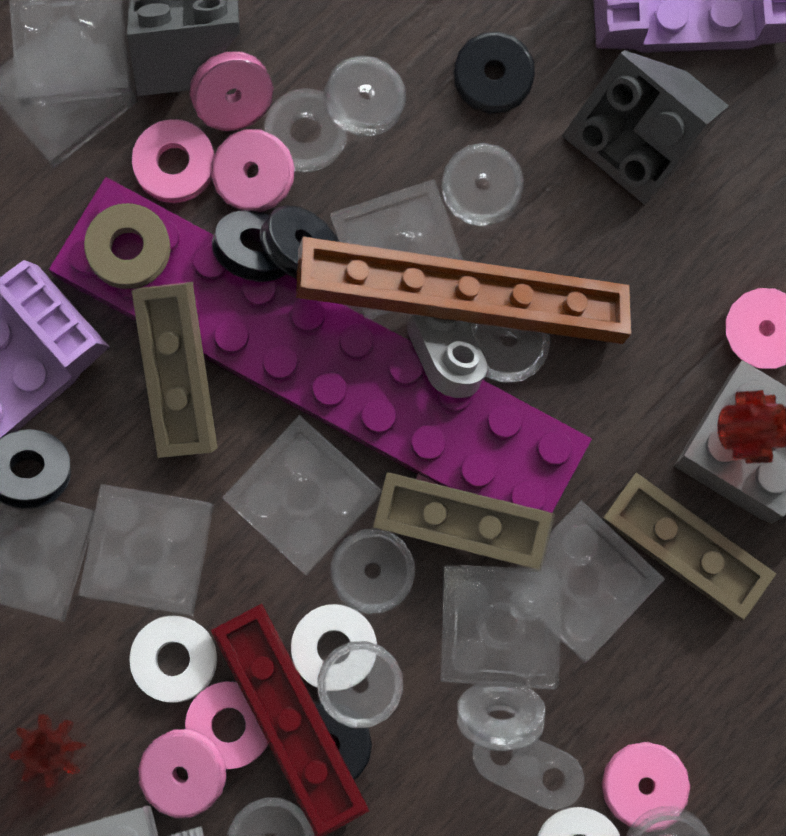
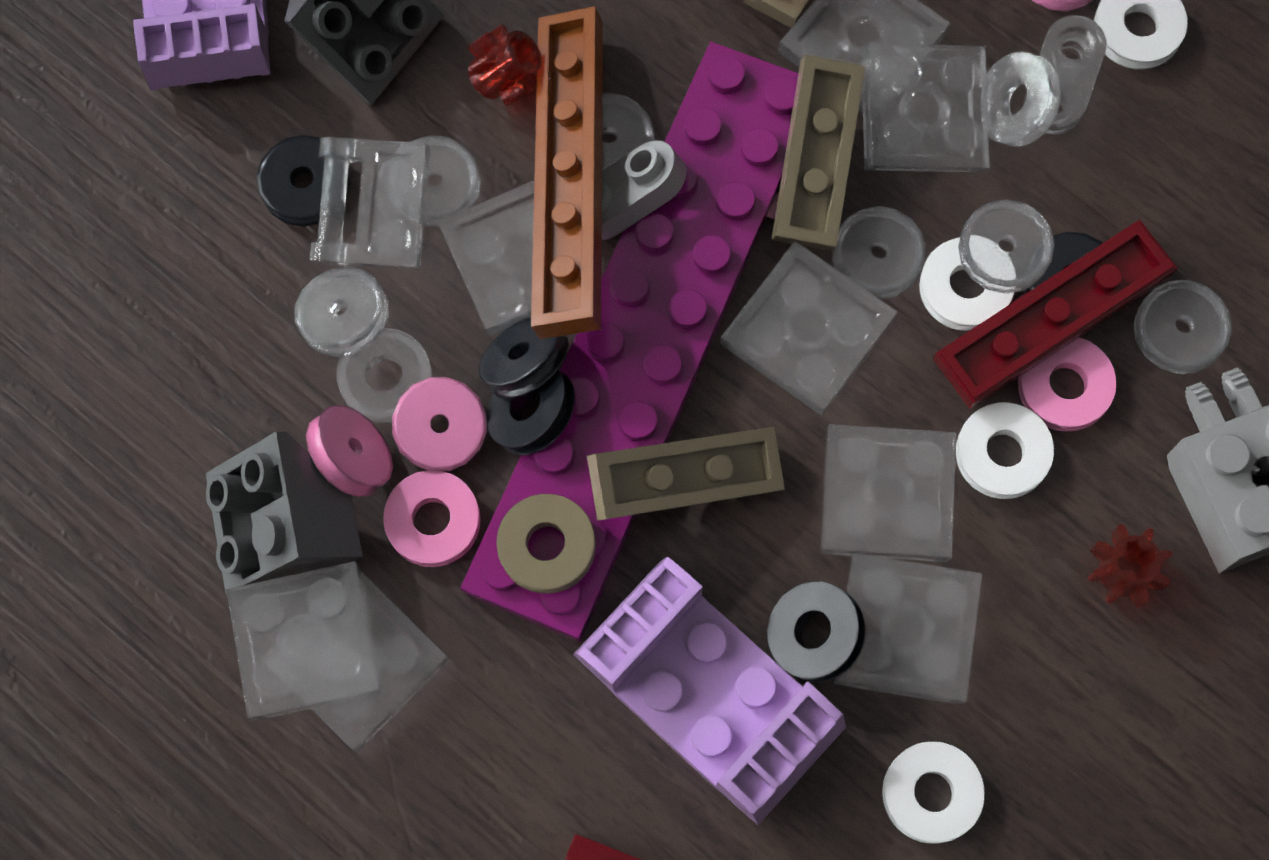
camera: 90 degrees left, 5 degrees down
(160, 779) = (1152, 422): bright pink piece -> none
(456, 138) = (389, 203): none -> clear plate
(580, 248) = (504, 64): none -> clear red gear

